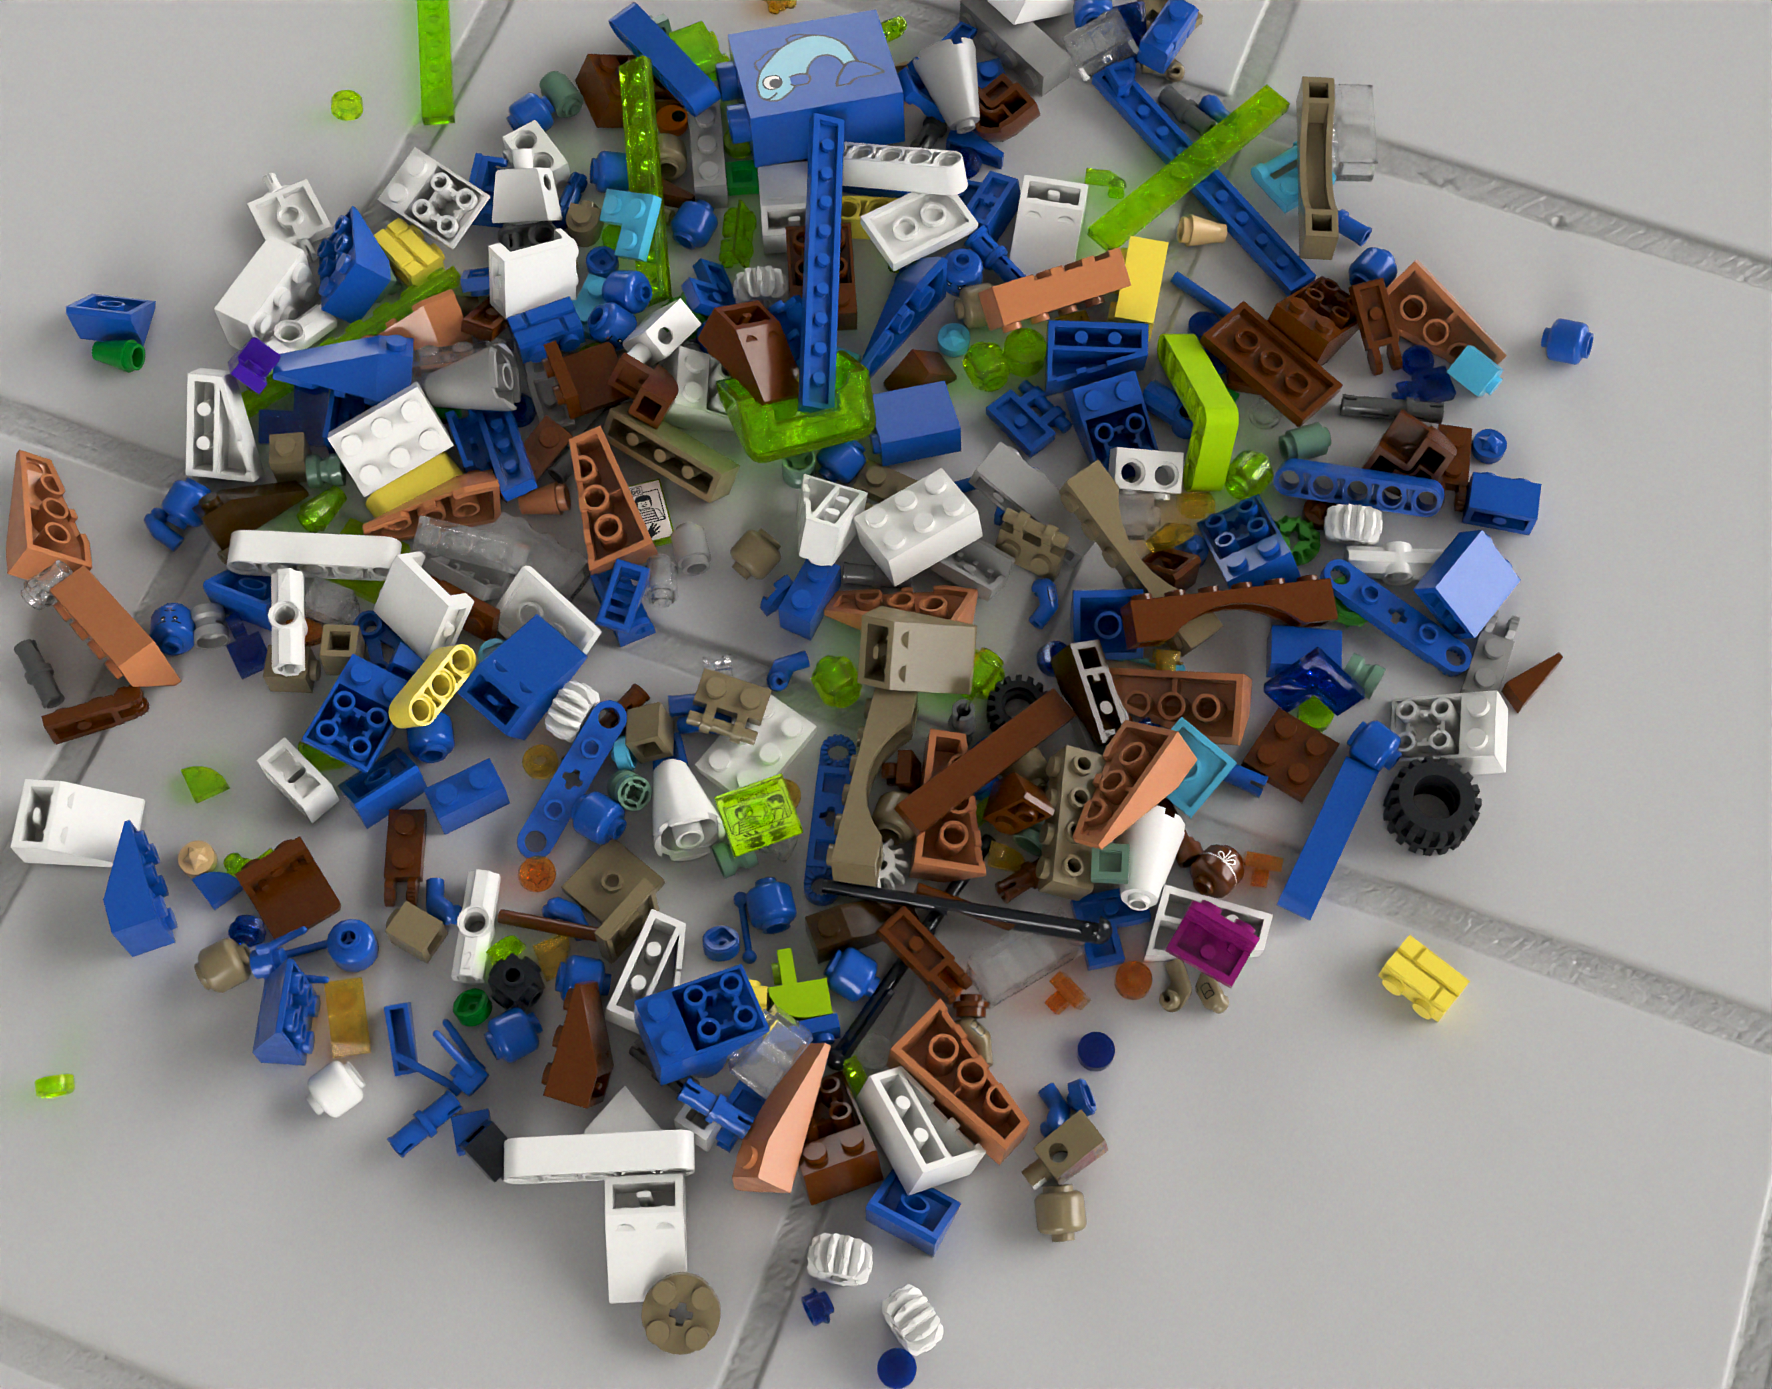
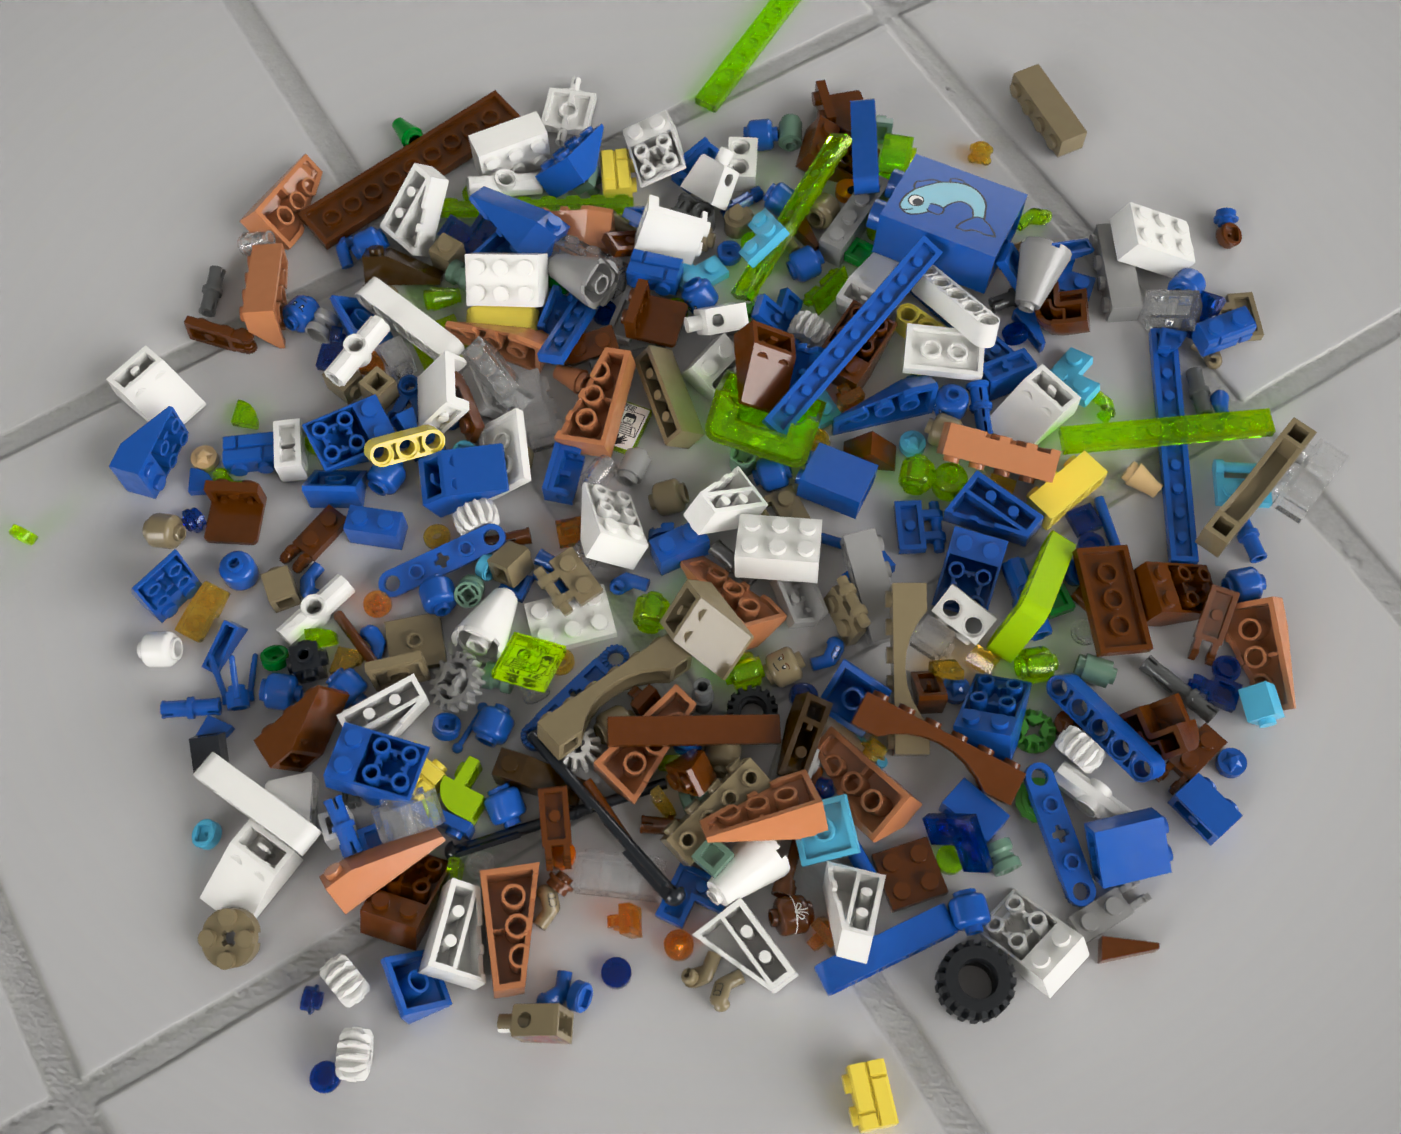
camera: 40 degrees right, 0 degrees up
(111, 318) = (420, 107): blue slope -> none
(155, 397) = (375, 189): none -> reddish brown plate
(252, 815) = (248, 453): none -> blue brick
(253, 364) = (459, 183): dark purple slope -> none
(269, 957) = (190, 547): blue plant -> none
(346, 105) = (656, 63): clear neon green tile -> none
(559, 1235) = (206, 834): none -> medium azure tile
(587, 36) = (834, 106): none -> reddish brown bracket
(628, 289) = (726, 279): blue head -> none
(630, 571) = (563, 455): blue slope -> none
(650, 388) = (683, 347): reddish brown brick -> none
(682, 658) = (568, 531): none -> clear orange tile
(699, 889) = (457, 682): none -> light grey gear
(725, 623) = (611, 527): none -> white slope
(856, 334) = (848, 398): none -> clear orange tile
(1014, 642) = (784, 667): none -> dark tan head
(1047, 162) = (1070, 371): none -> medium azure plate
(1060, 1212) = (503, 1059): dark tan head -> none
(1177, 307) = (1083, 520): none -> clear blue tile
(1213, 942) = (732, 962): magenta bracket -> none
(1274, 819) = (852, 908): none -> white wedge
(1567, 341) = (1351, 729): blue head -> none

